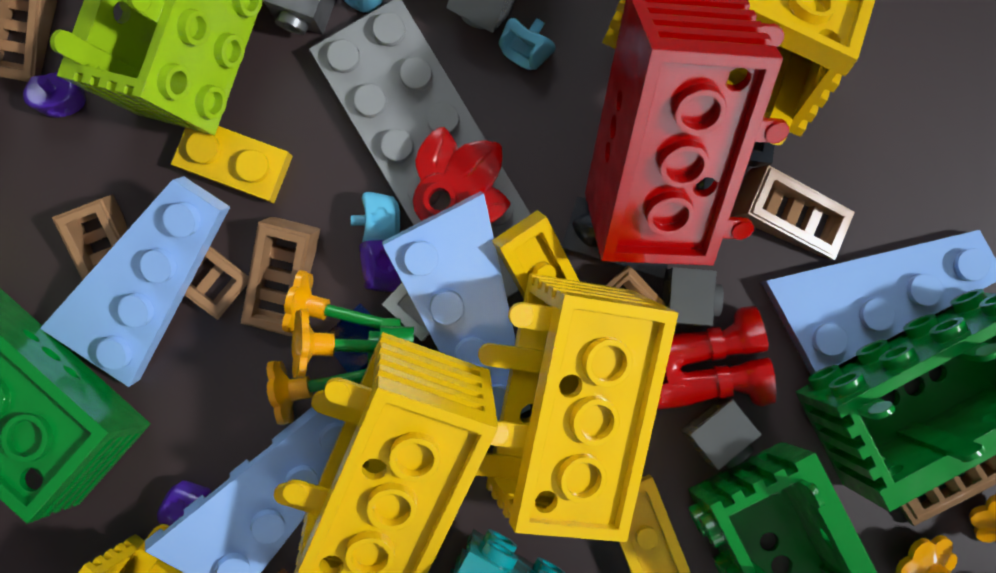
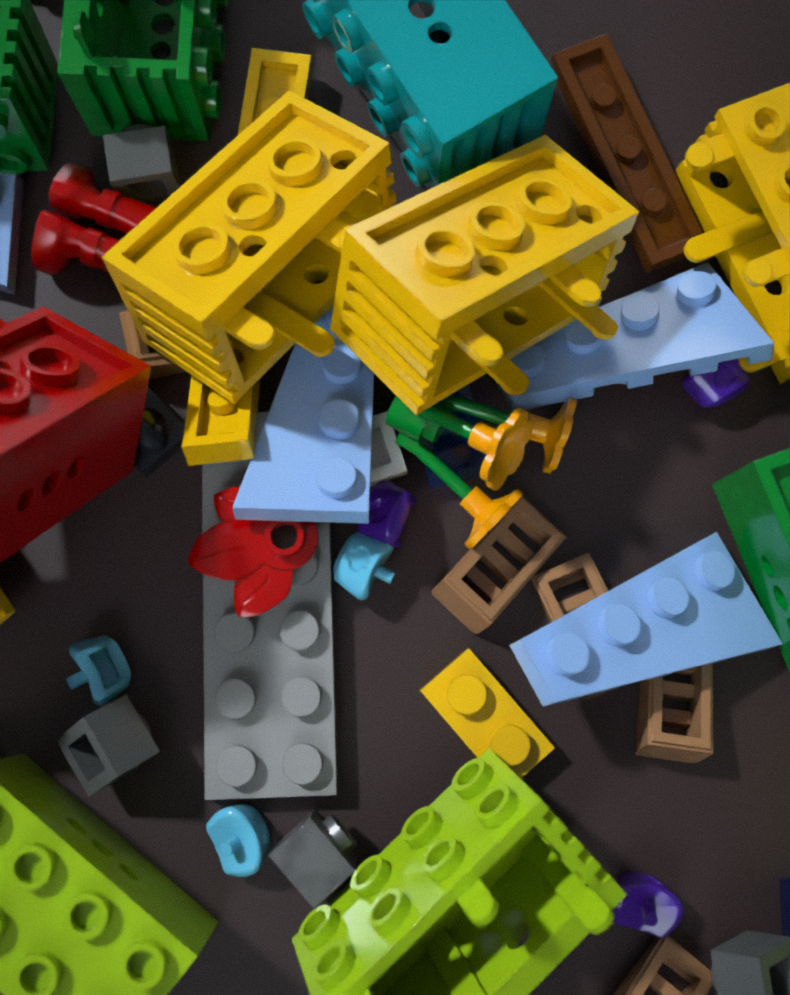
camera: 160 degrees left, 5 degrees down
(693, 295) = (90, 302): dark grey plate -> none

